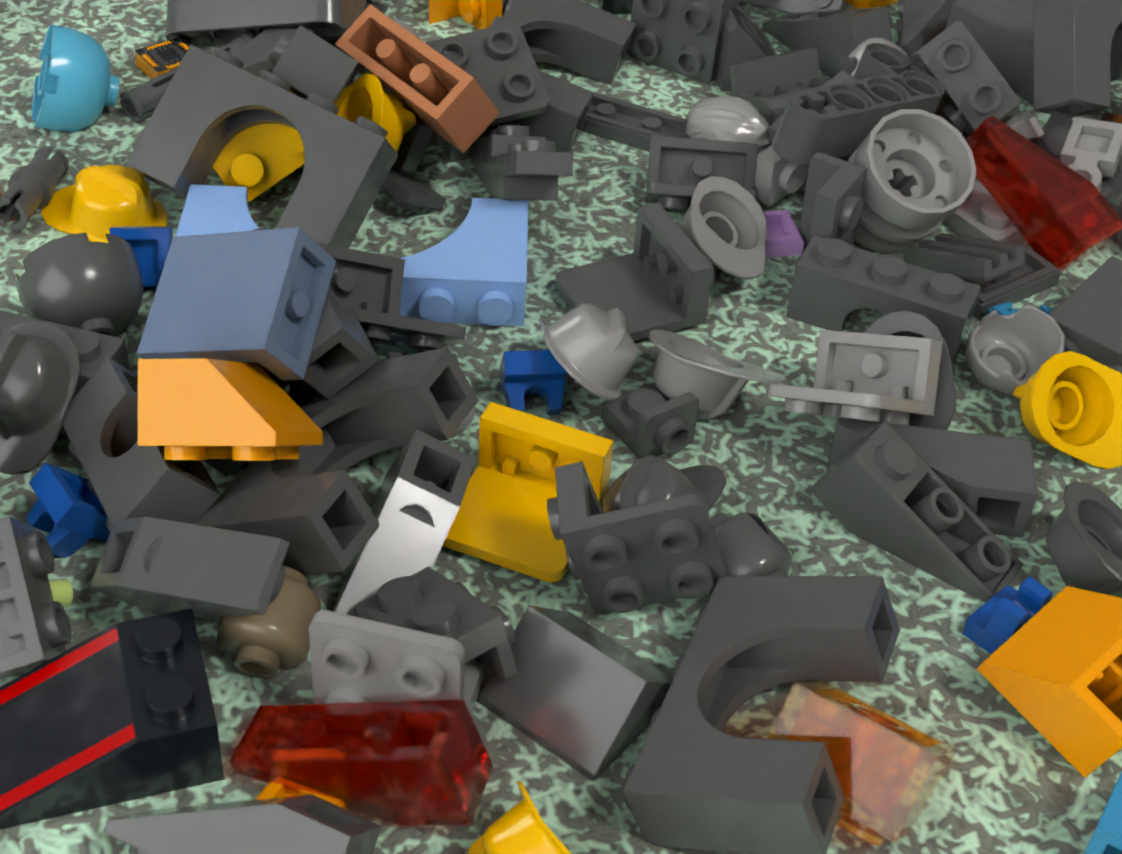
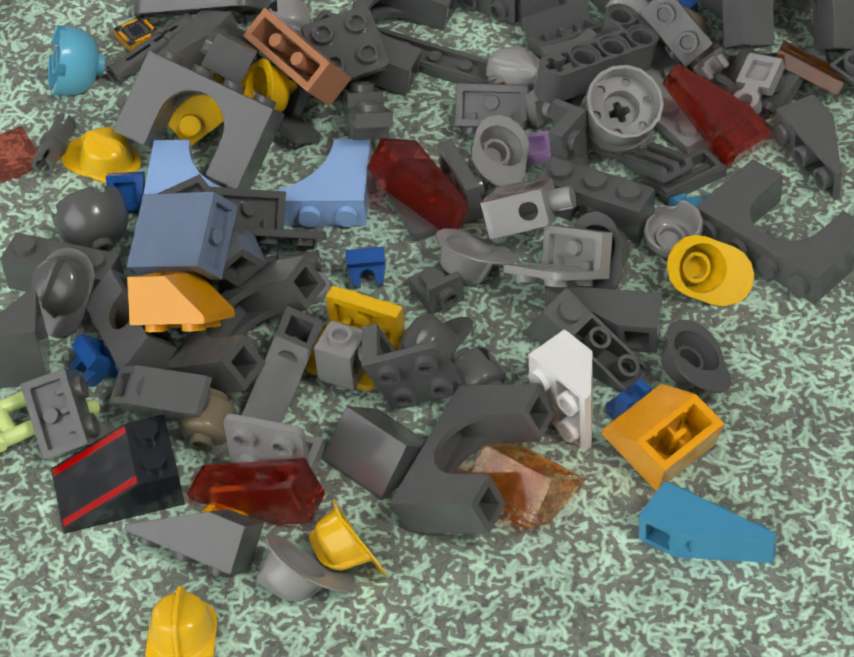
camera: 10 degrees right, 5 degrees up
(446, 609) = (297, 409): dark grey bracket -> none
(510, 518) = (338, 356): none -> light grey brick
(592, 347) = (398, 245): light grey piece -> none
(611, 262) = (417, 182): none -> clear red slope
(762, 309) = (525, 206): none -> light grey torso
(929, 582) = (566, 376): none -> white slope

